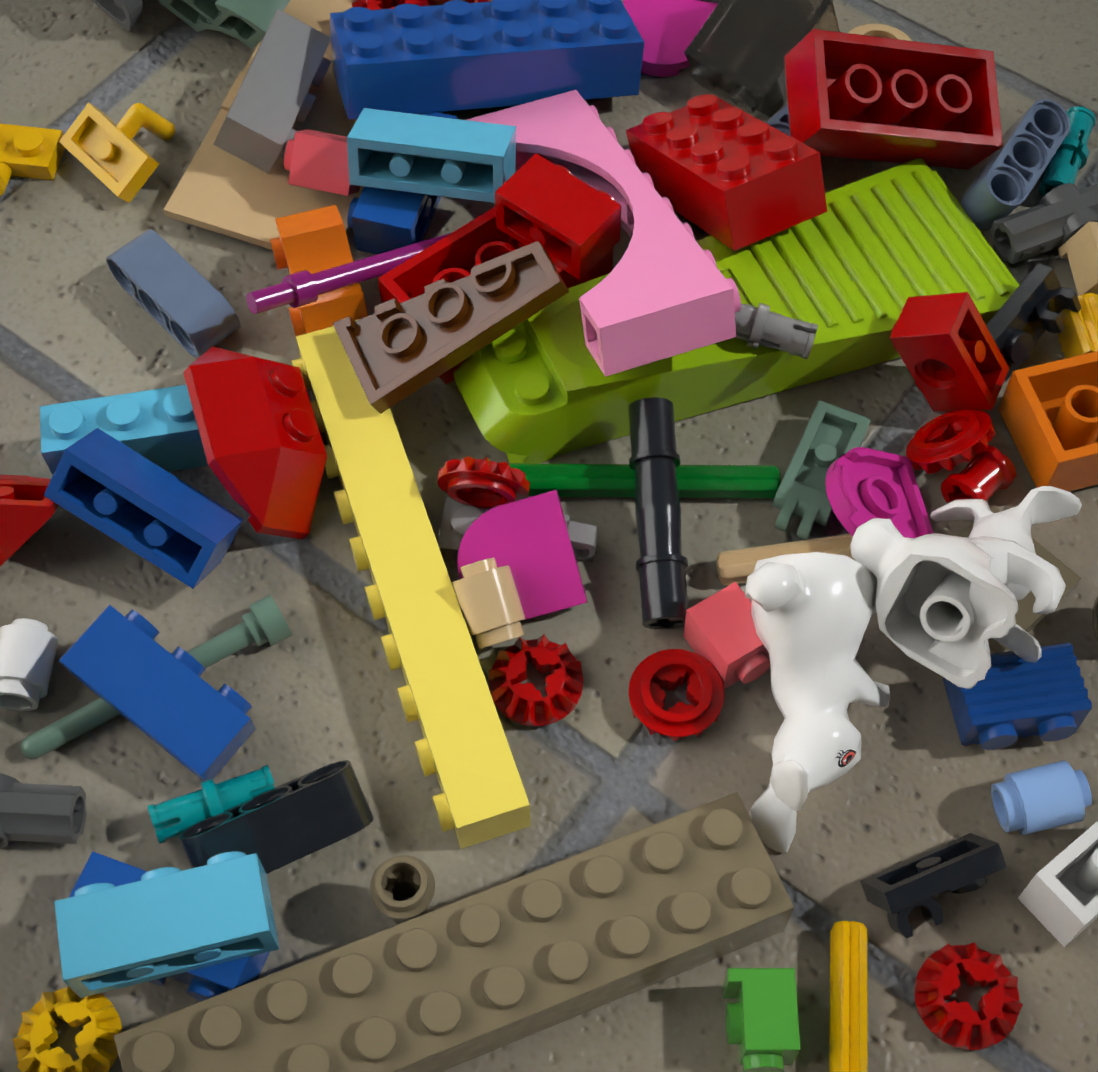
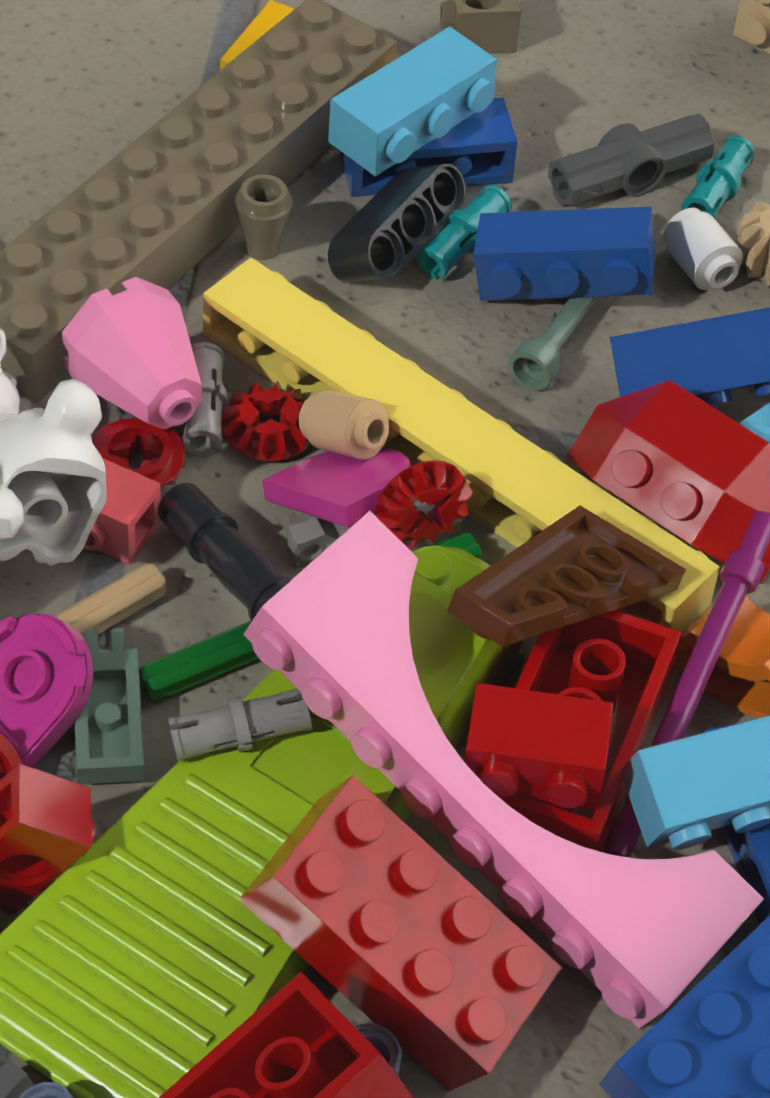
camera: 145 degrees right, 10 degrees down
(581, 728) = (203, 429): none -> light grey pin
(633, 753) = (135, 353): none -> bright pink cone

